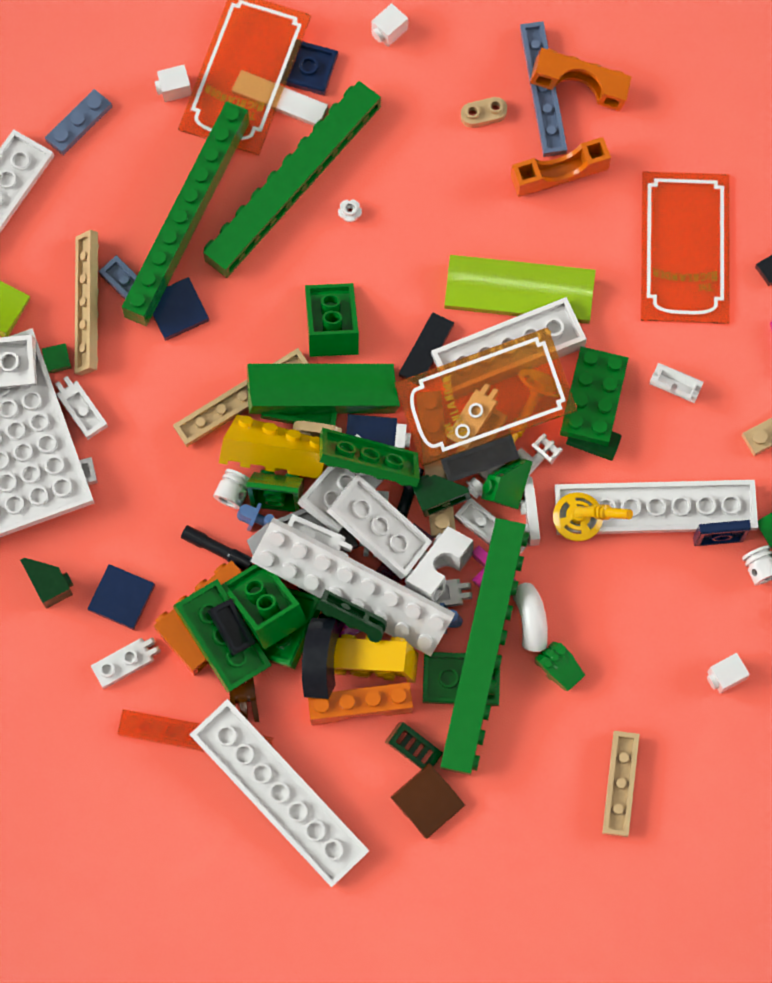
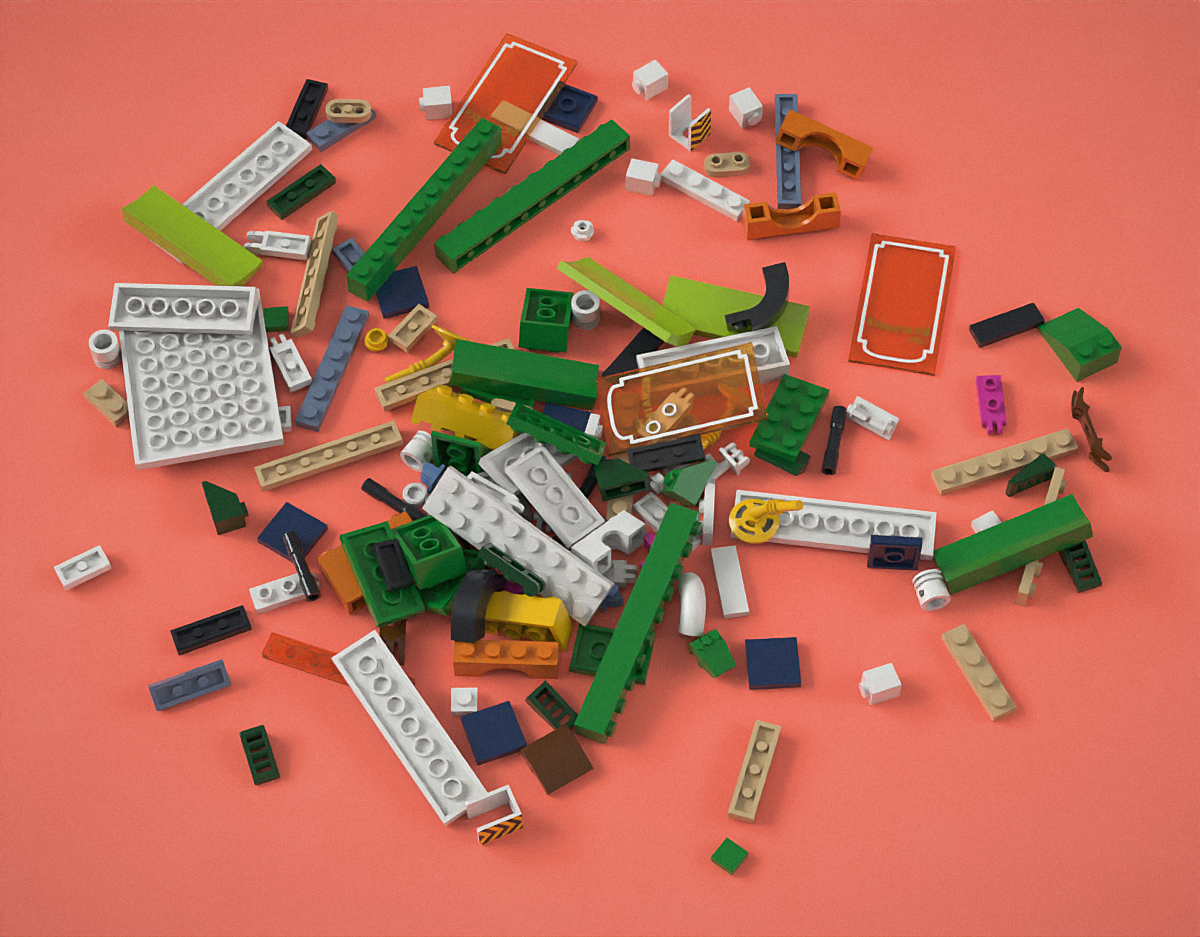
camera: 10 degrees right, 15 degrees down
(38, 106) = (307, 107): none -> black tile
(42, 273) = (279, 244): none -> white hinge
(52, 779) = (189, 685): none -> sand blue plate
(53, 208) = (301, 192): none -> dark green plate
(61, 714) = (210, 630): none -> black tile
(84, 107) = (346, 110): none -> tan plate
(124, 406) = (332, 368): none -> sand blue plate
(128, 821) = (257, 738): none -> dark green slope
(131, 622) = (306, 579): none -> black piece
(141, 506) = (328, 456): none -> tan plate
(163, 368) = (376, 340): none -> yellow plate
(198, 349) = (412, 328): none -> tan plate
(235, 535) = (415, 494): none -> white tile
(240, 357) = (449, 343): none -> yellow dish
(326, 753) = (464, 701): none -> white plate
(361, 781) = (493, 732): none -> dark blue tile
(370, 304) = (585, 310): none -> white piece
(372, 857) = (489, 802): none -> white piece
(401, 141) = (642, 177): none -> white brick
(412, 290) = (629, 300): none -> lime arch
(430, 68) = (681, 120): none -> white piece
(466, 145) = (704, 190): none -> white plate
(493, 45) = (745, 108): none -> white brick
(562, 267) = (770, 307): none -> black arch
(563, 584) = (729, 582): none -> white tile
(610, 875) = (729, 856): none -> green tile
(619, 665) = (772, 663): none -> dark blue tile
(641, 427) = (831, 454): none -> black piece

